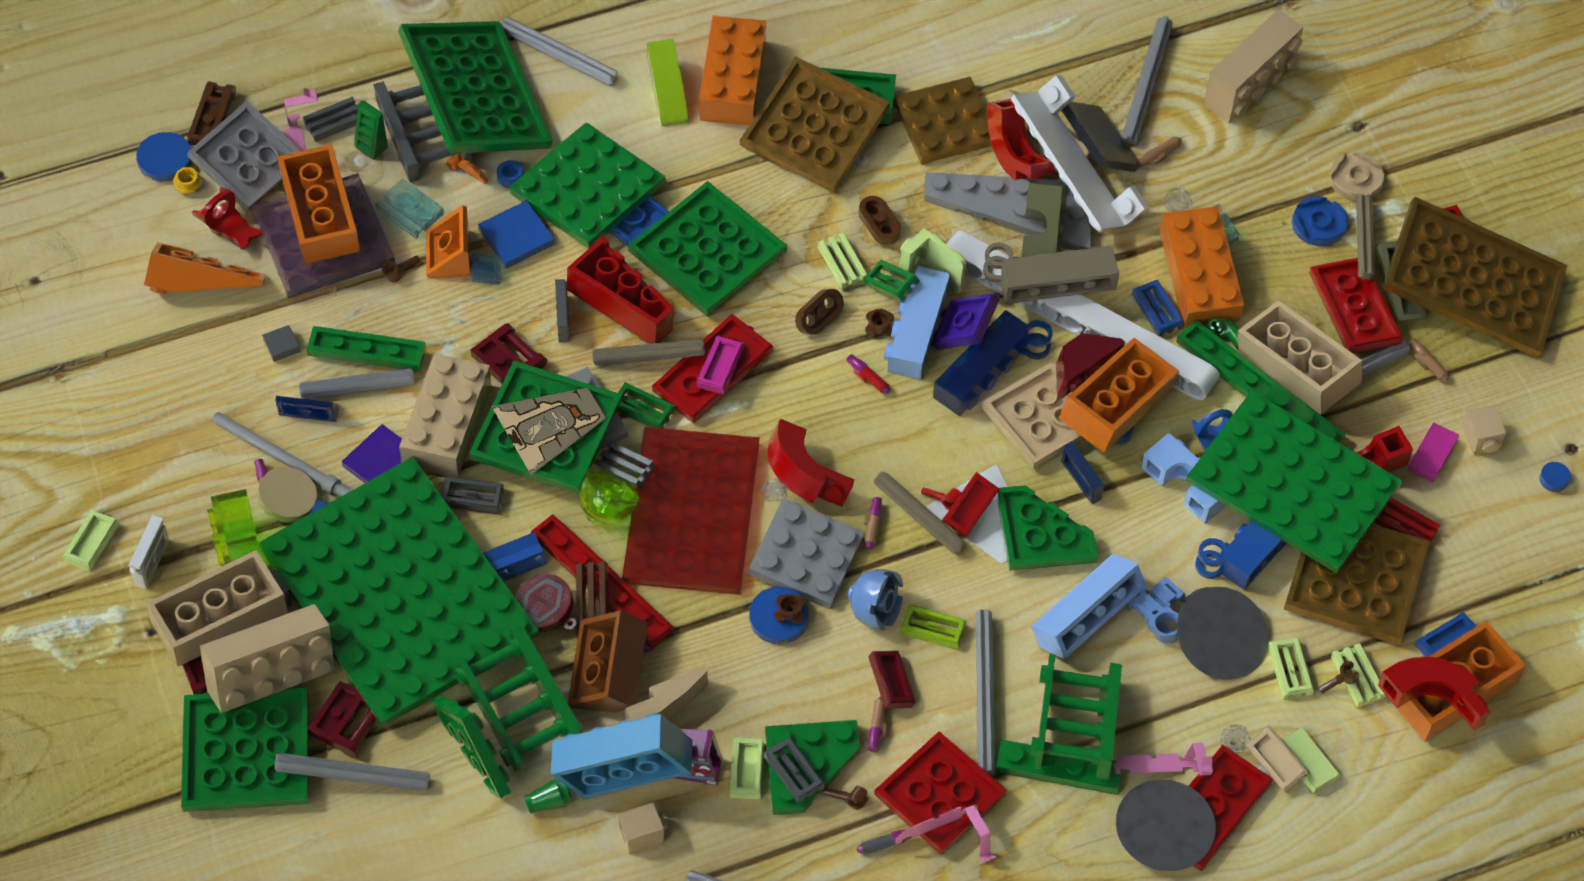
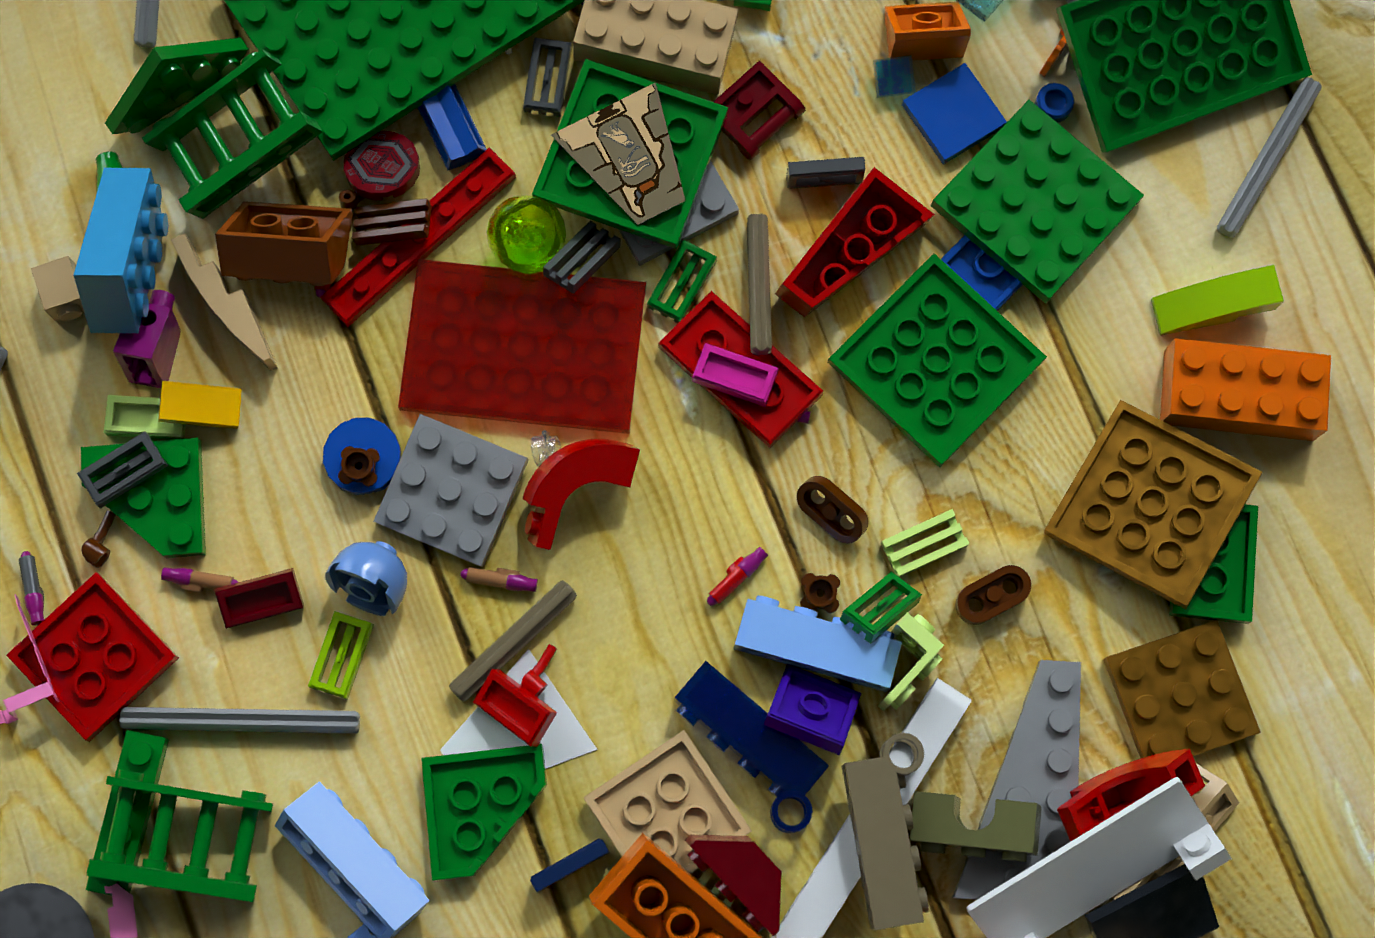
camera: 90 degrees right, 20 degrees up
(739, 723) = (200, 404): none -> yellow tile

